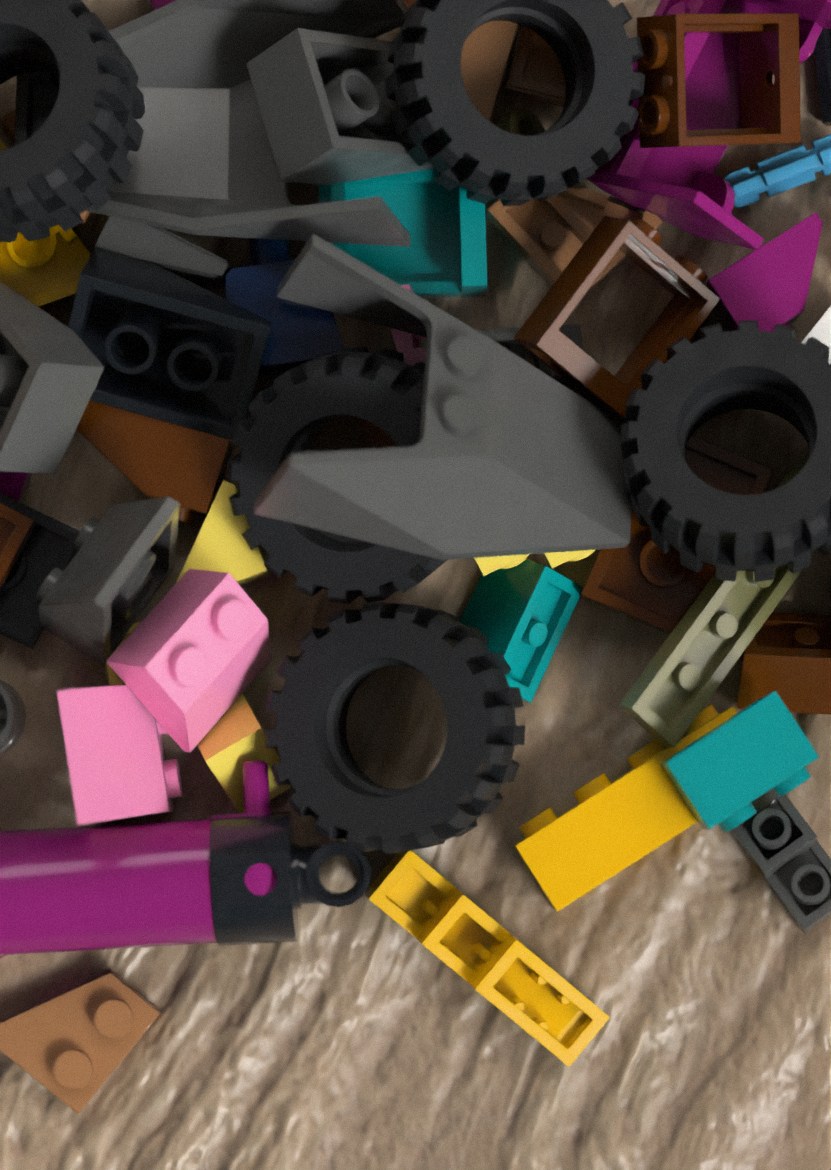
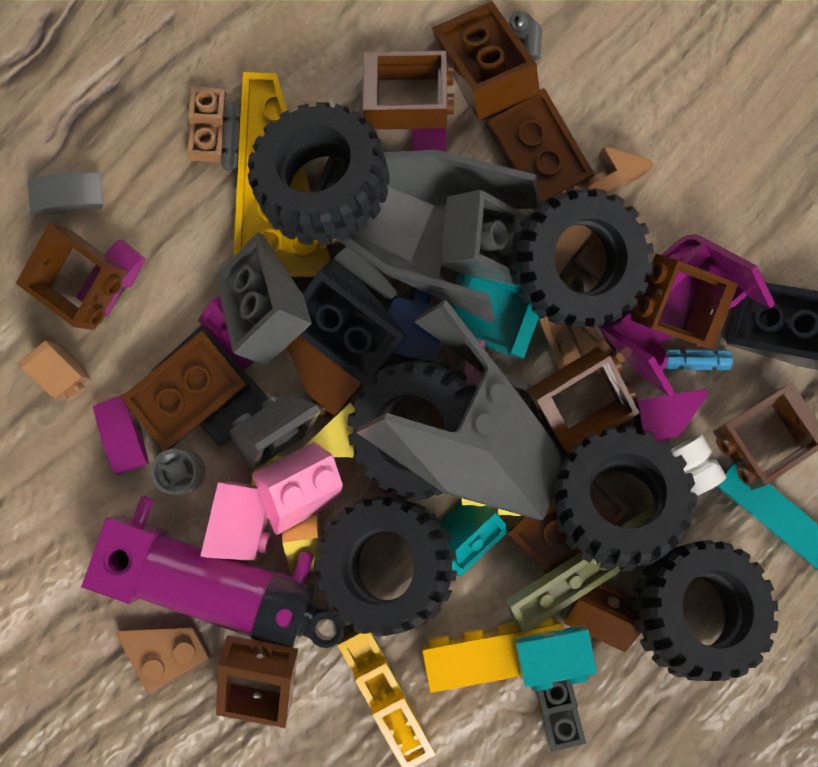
camera: 20 degrees right, 0 degrees up
(278, 967) = (276, 668): none -> reddish brown window

